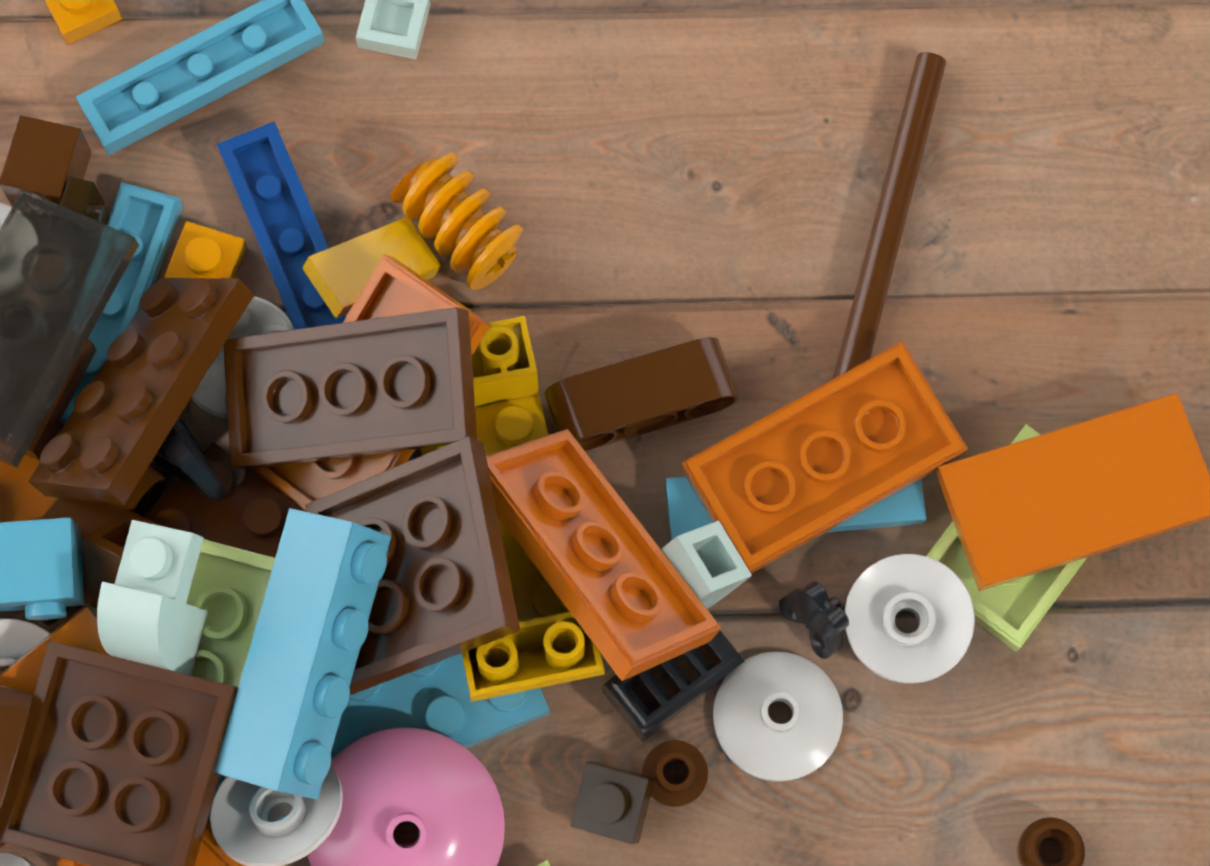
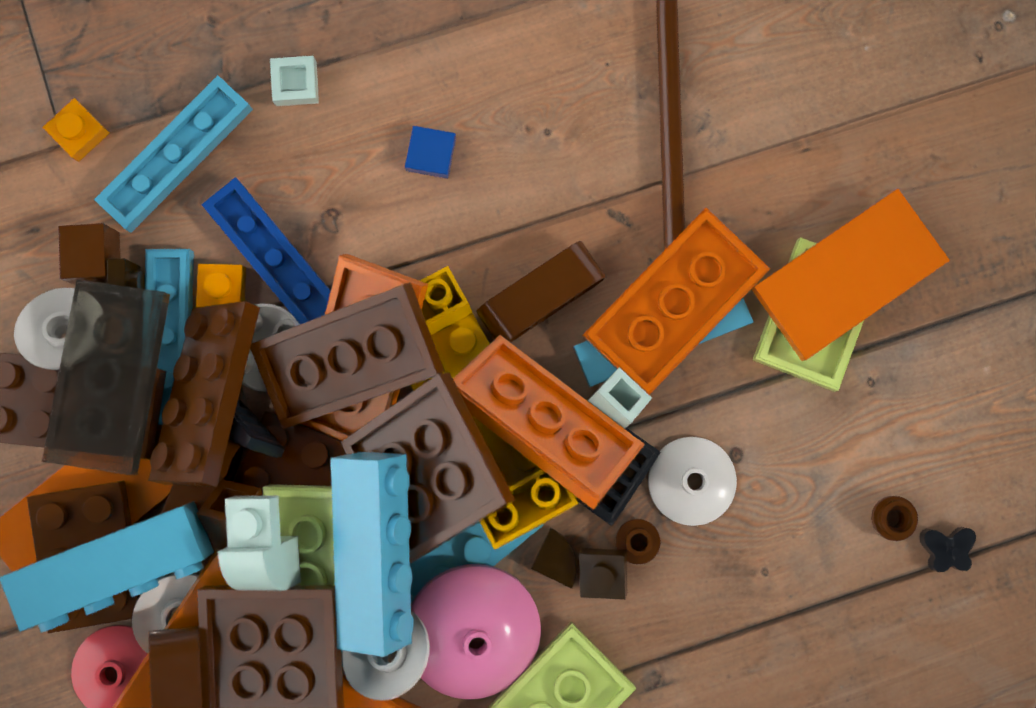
camera: 15 degrees left, 10 degrees up
(345, 268) = (317, 268): yellow tile -> none
(458, 220) = (381, 209): light orange piece -> none
(547, 166) = (430, 152): none -> blue tile
(552, 765) = (556, 559): none -> dark brown tile
(819, 615) = (701, 408): black piece -> none
(927, 591) = (783, 400): white dish -> none

